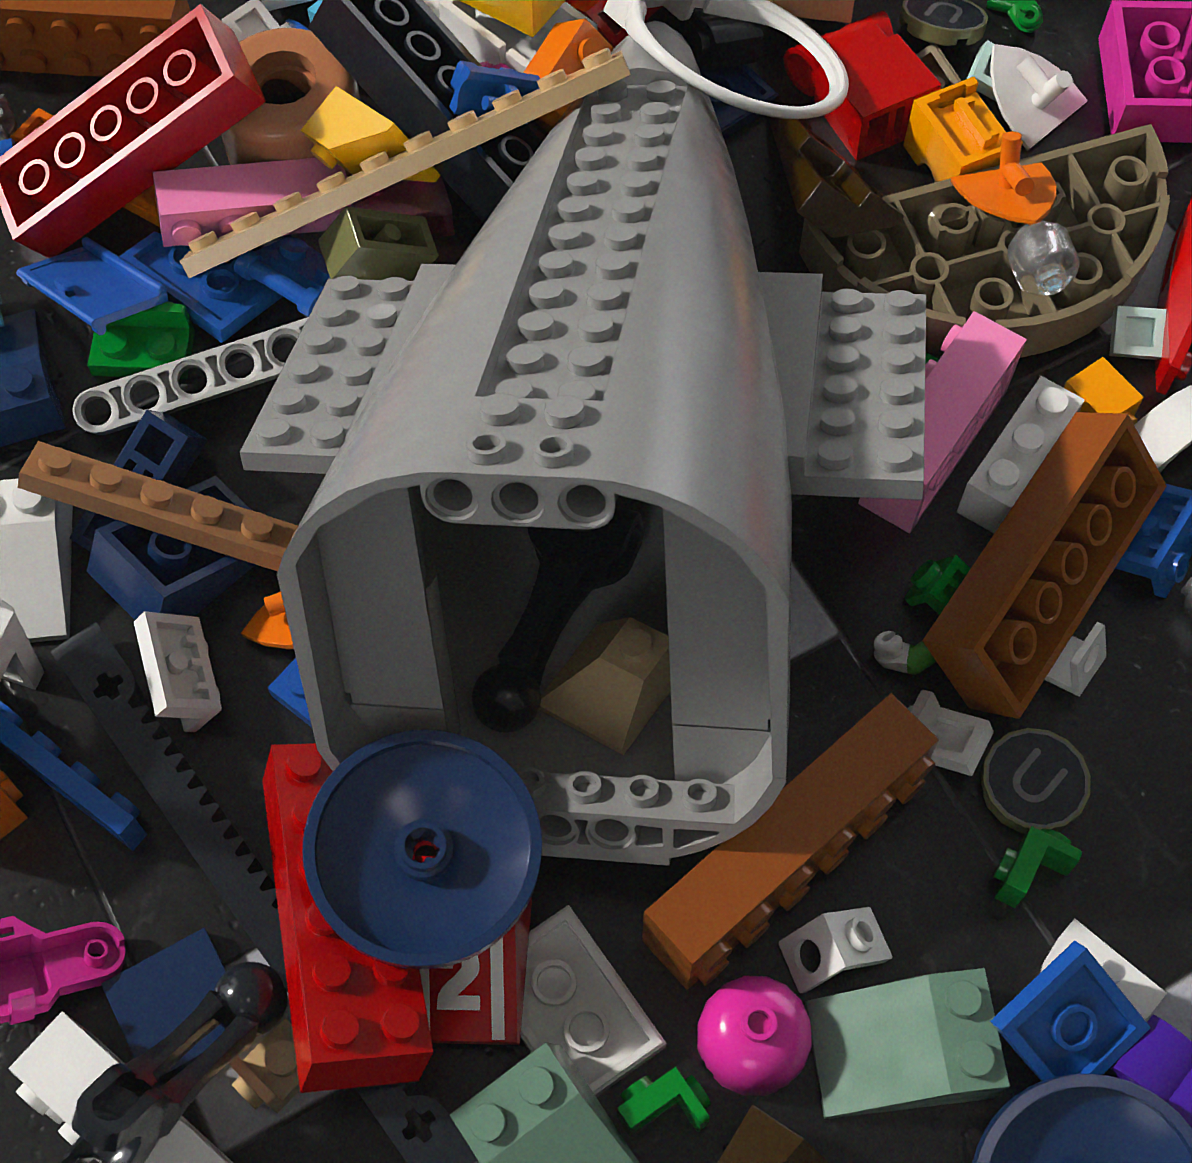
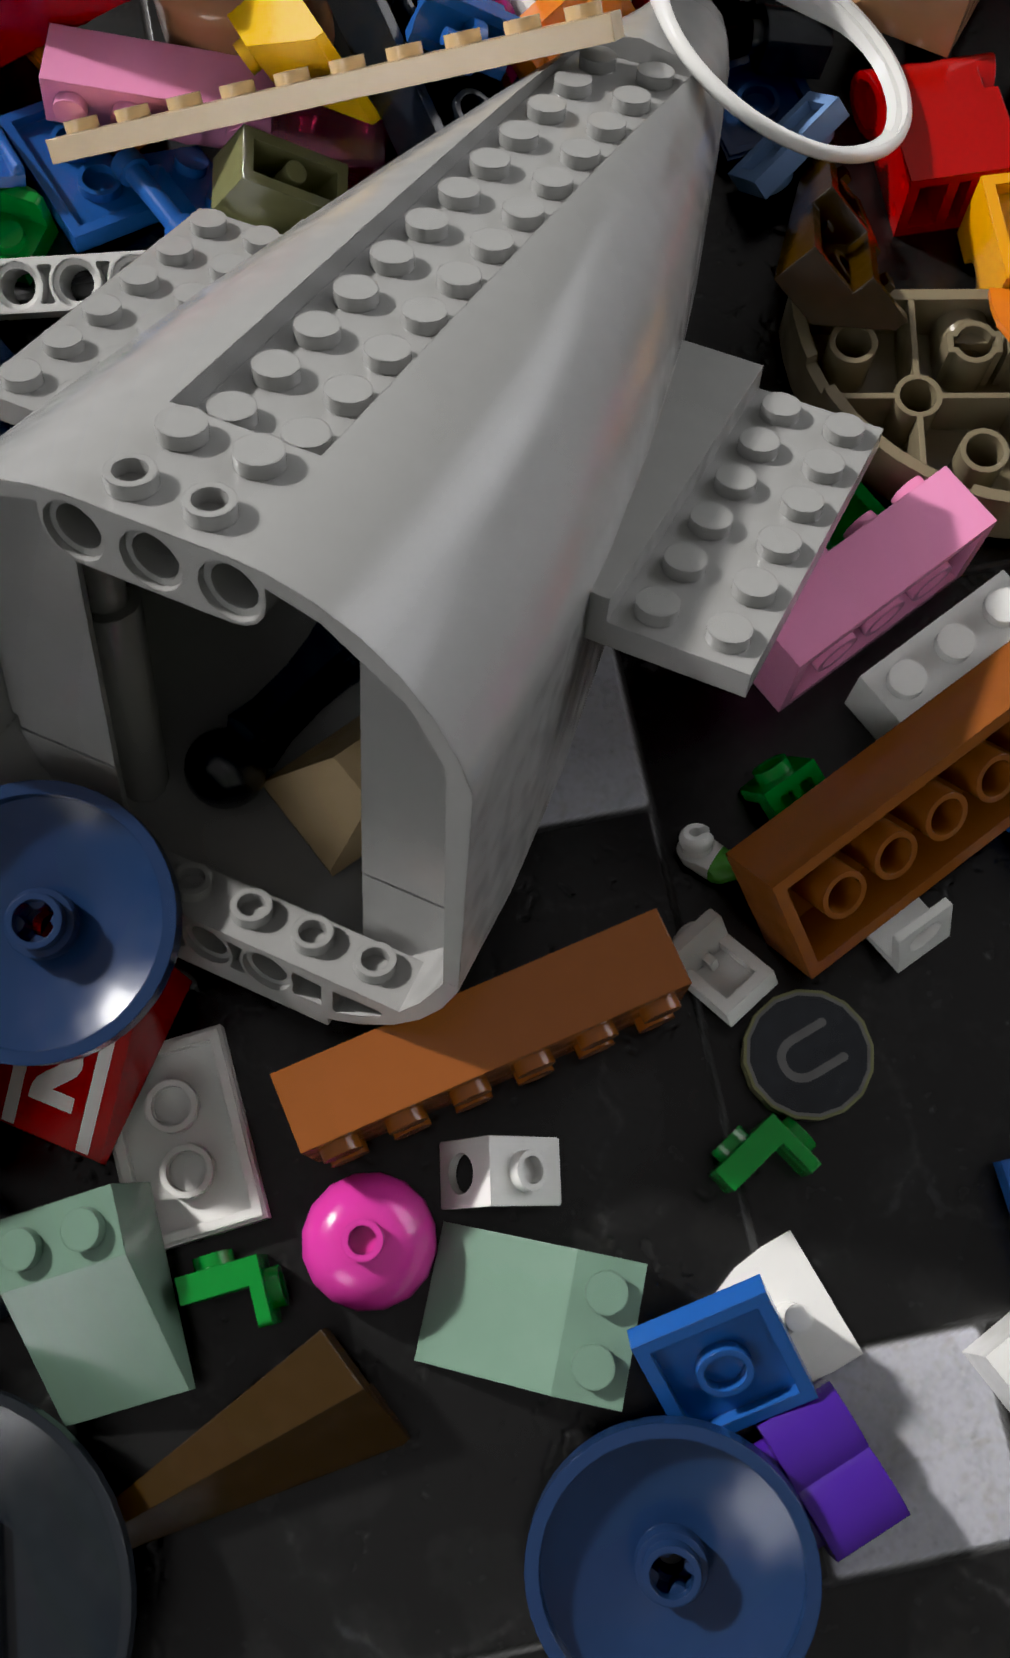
camera: 20 degrees right, 10 degrees up
(748, 131) = (771, 166): none -> medium blue plate

